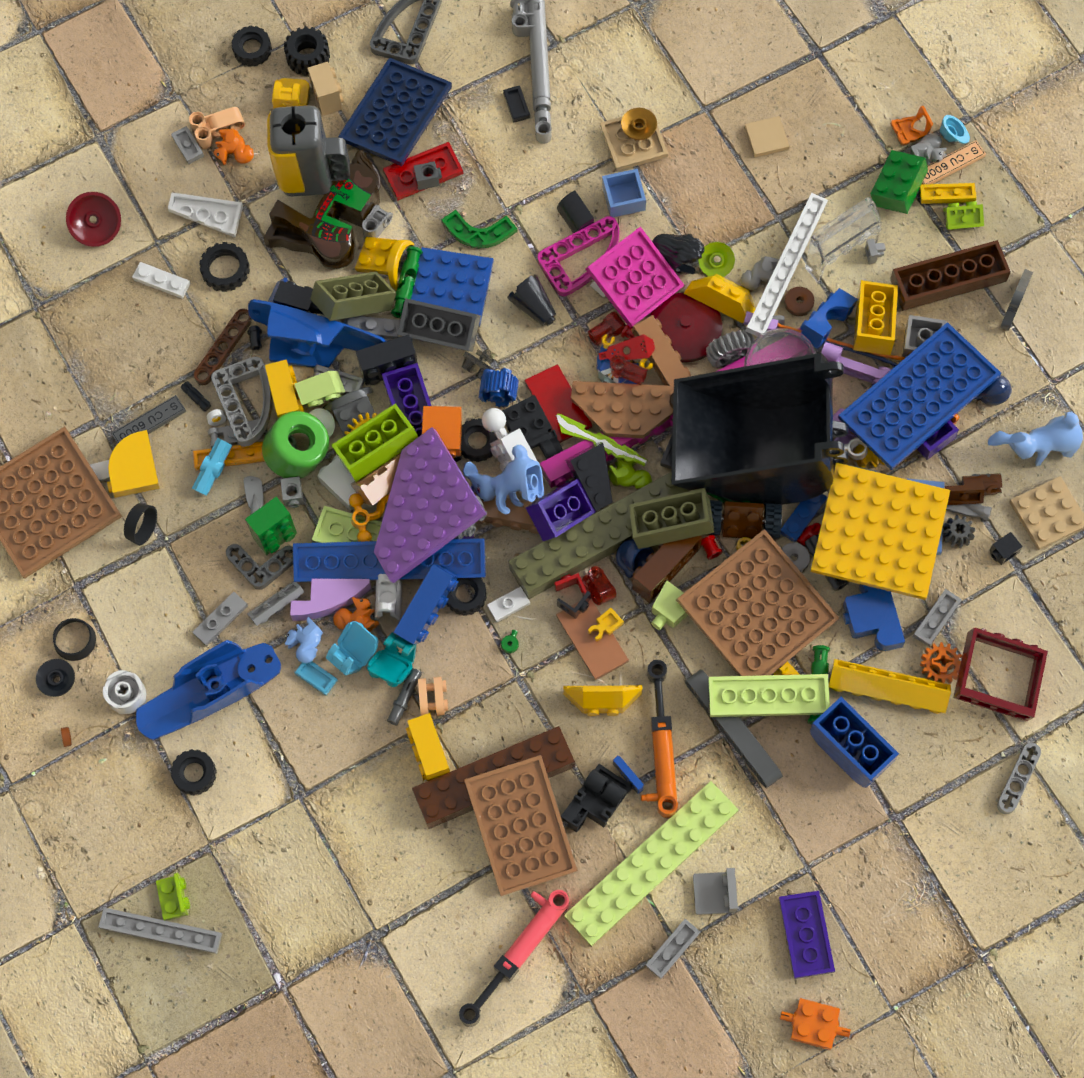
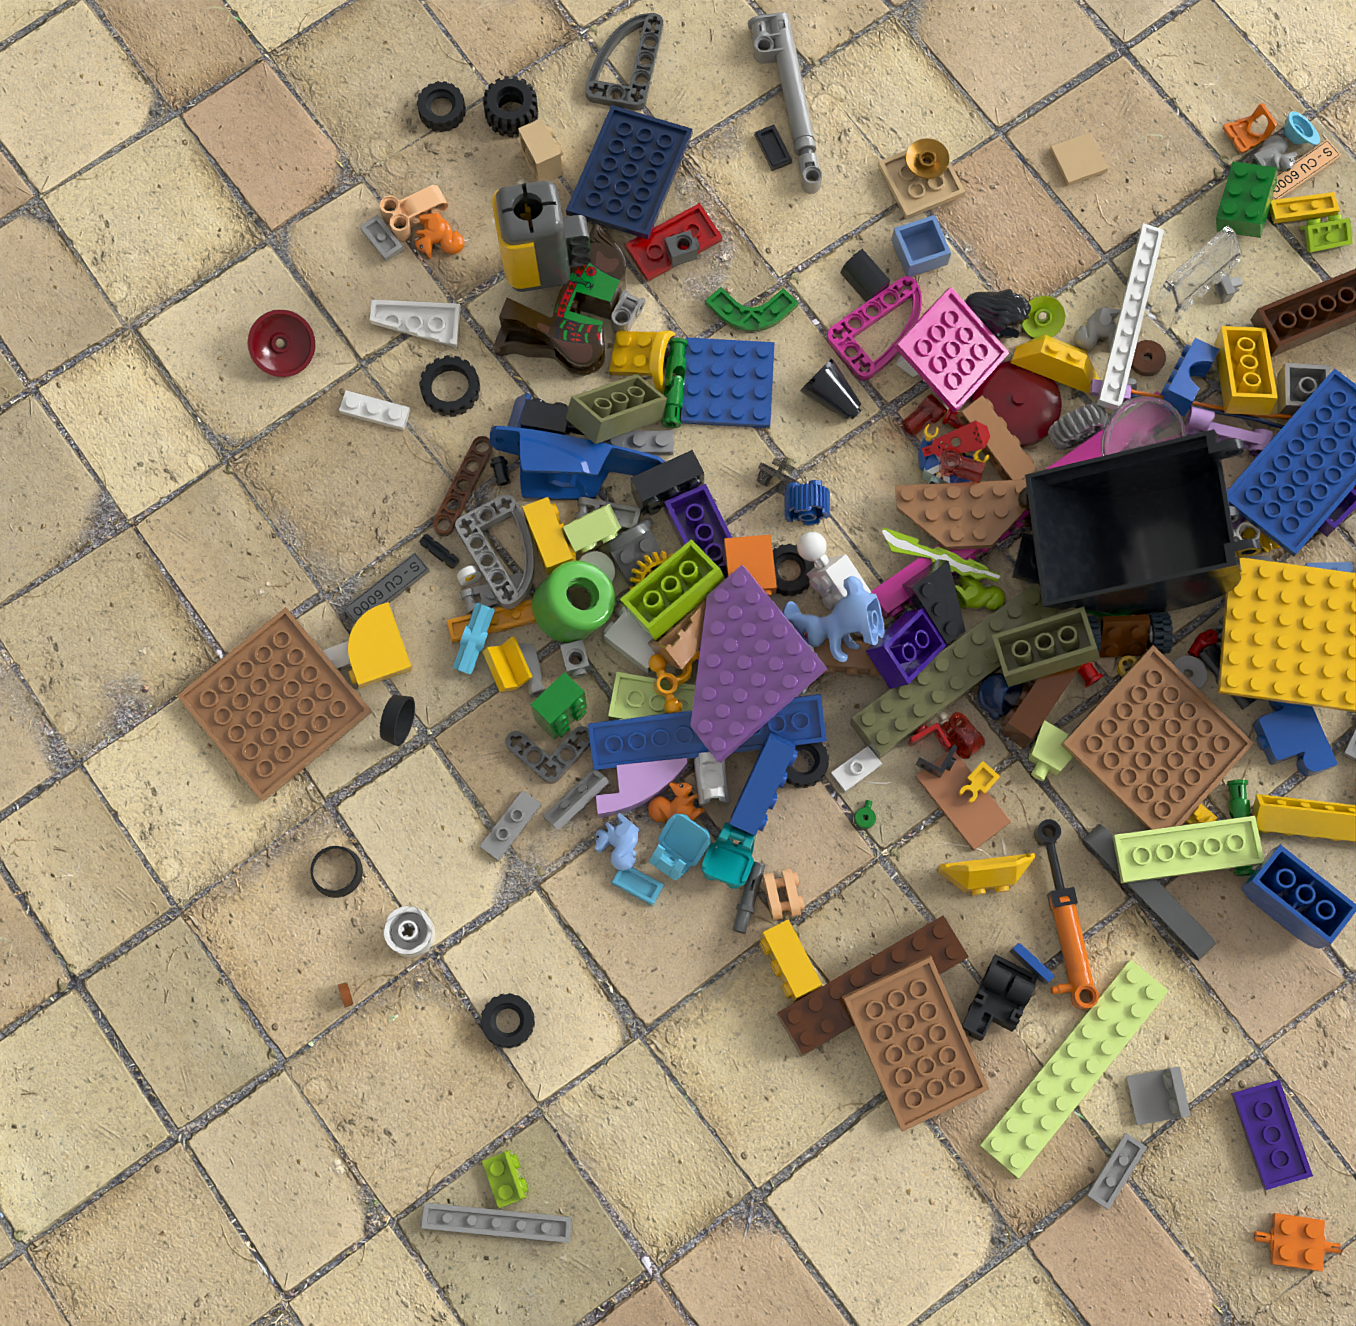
camera: 10 degrees left, 5 degrees up
(49, 671) = (309, 920): black dish -> none
(207, 686) = (509, 915): blue piece -> none
(236, 491) = (507, 665): none -> yellow panel
(290, 92) = (498, 164): yellow piece -> none
(439, 325) = (723, 433): dark grey brick -> none
(520, 950) = (934, 1197): coral piece -> none
(534, 425) = (850, 537): black plate -> none
(555, 398) = (874, 509): red tile -> none
(802, 517) = (1188, 626): blue plate -> none

